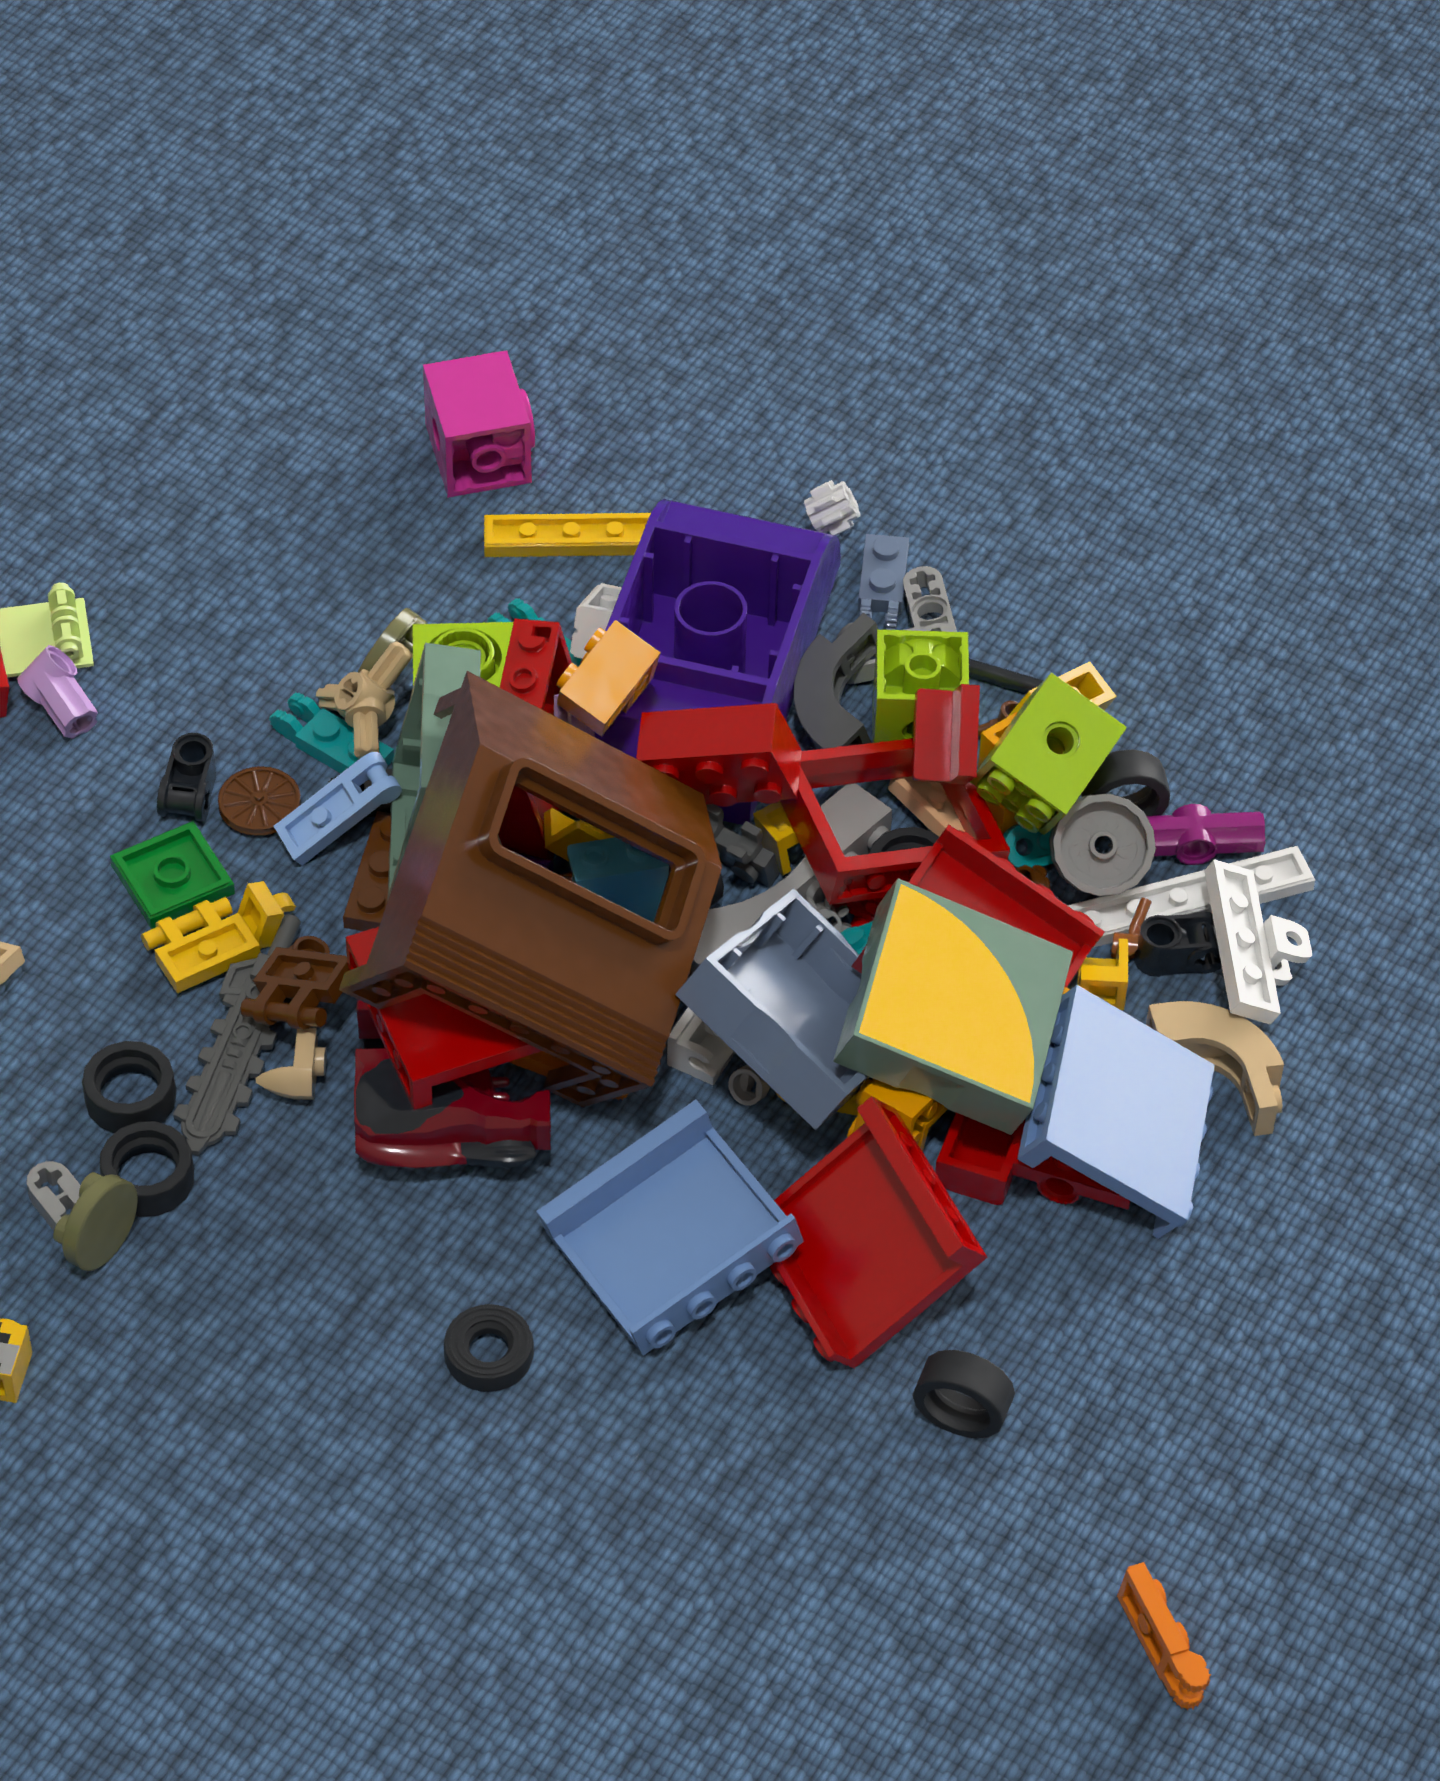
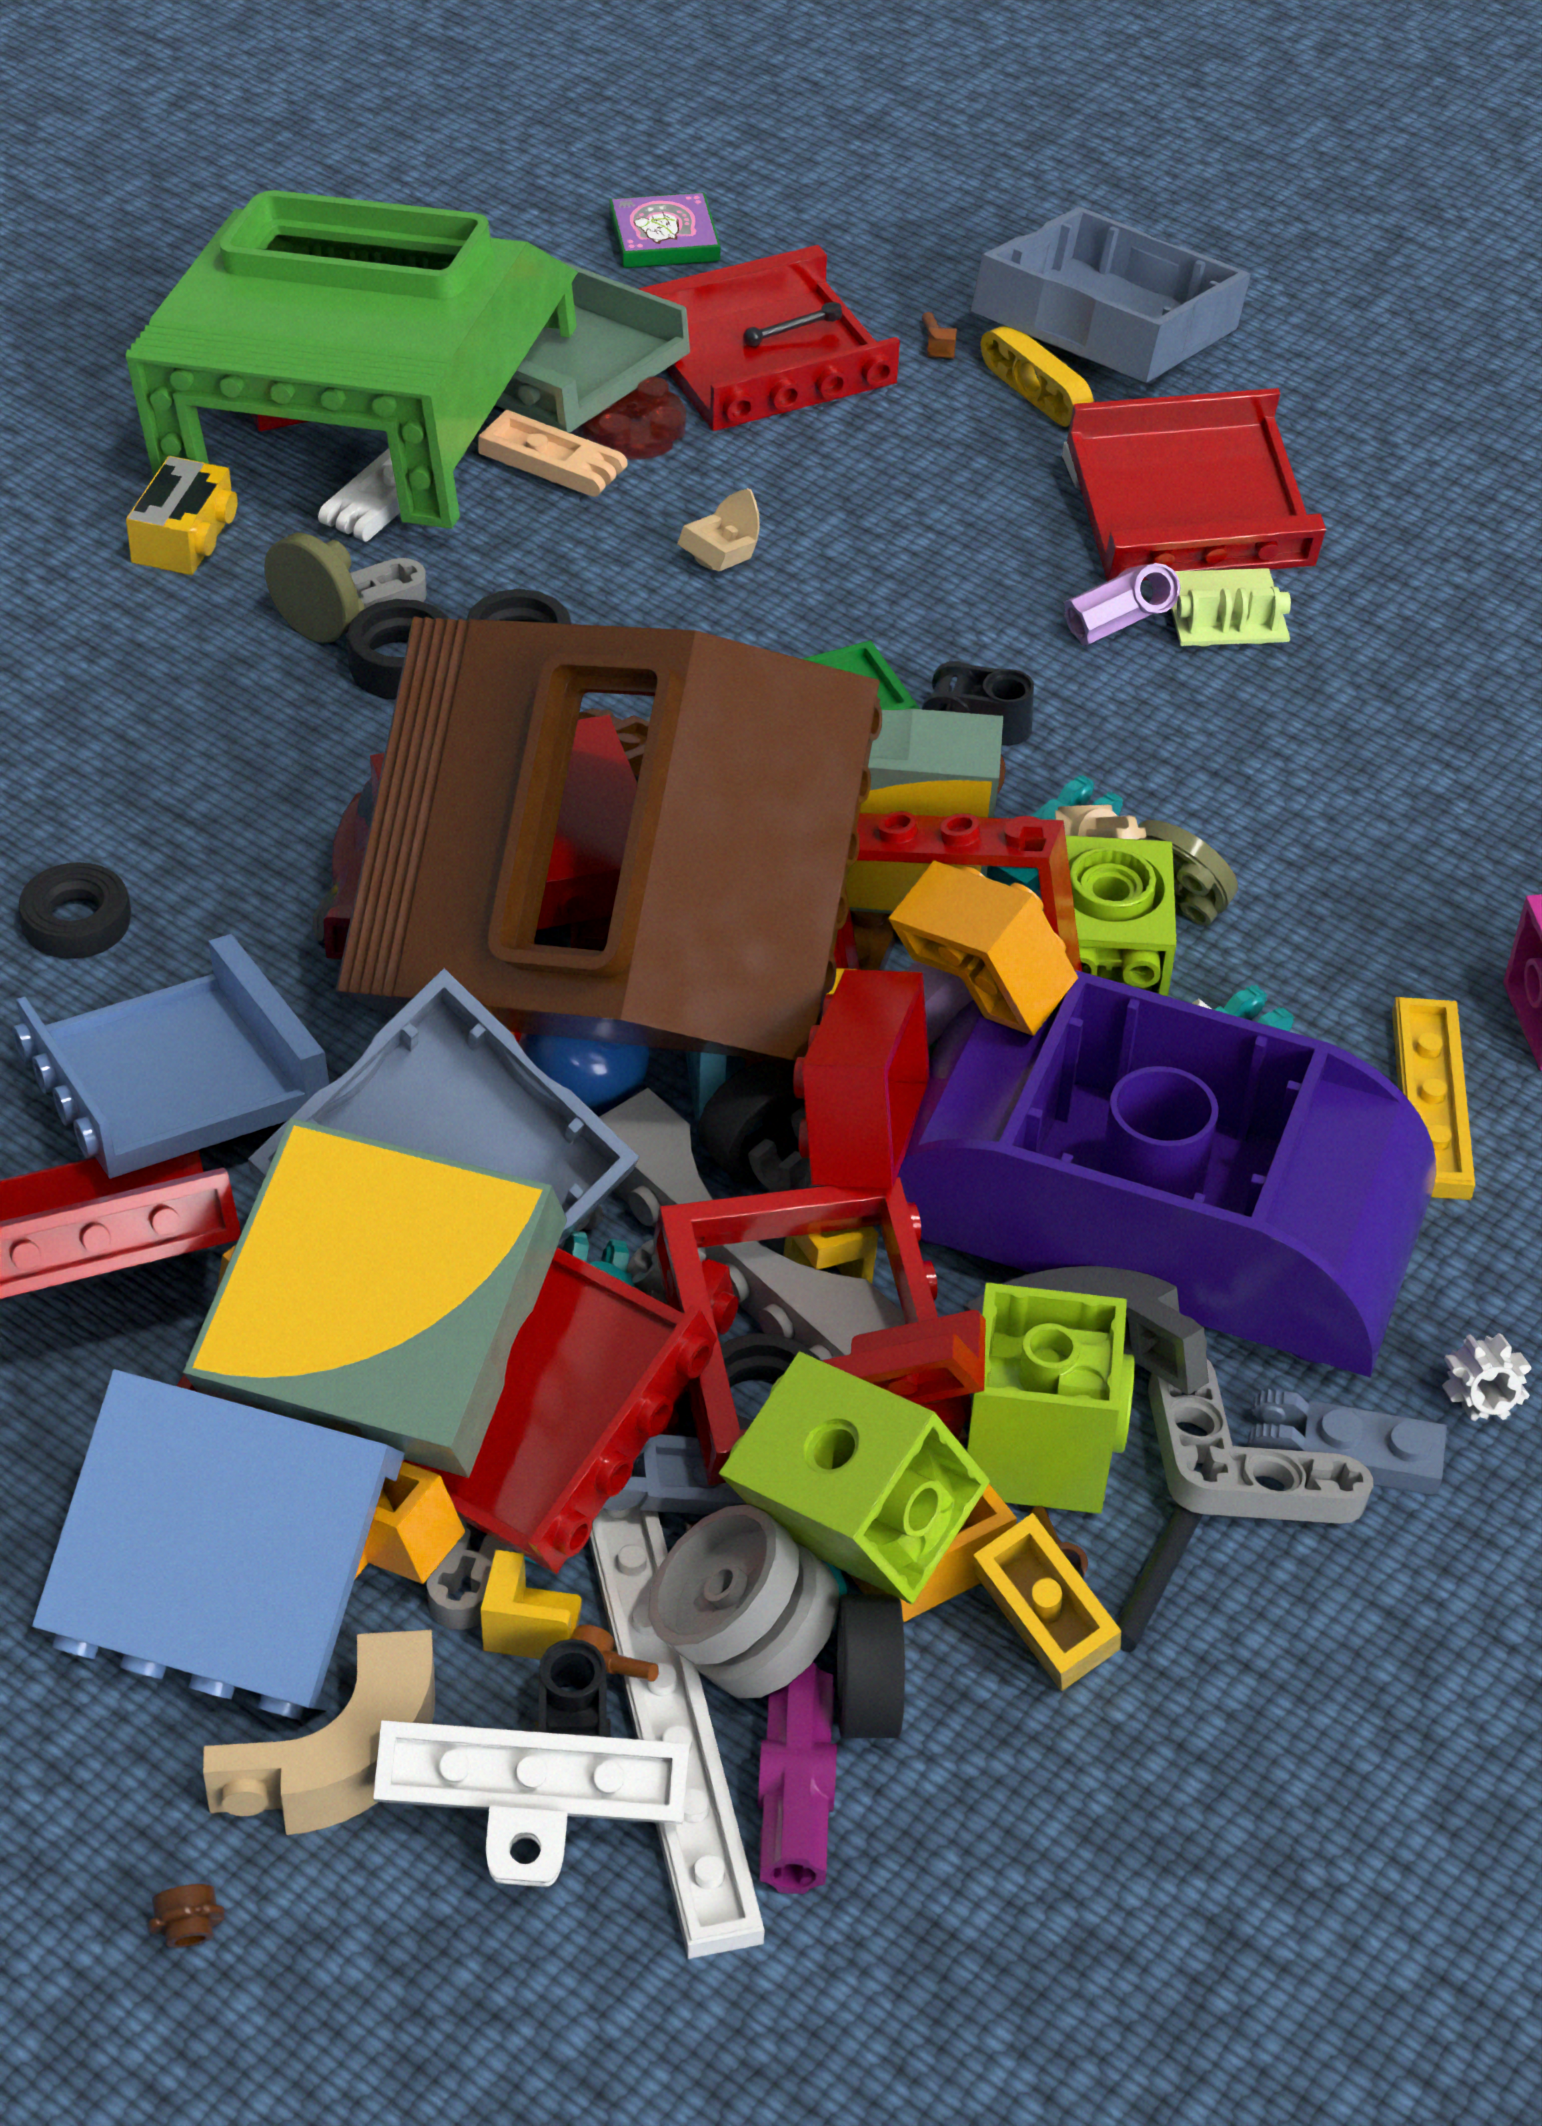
camera: 95 degrees right, 5 degrees down
(1355, 1120) = (186, 1915): none -> reddish brown plate

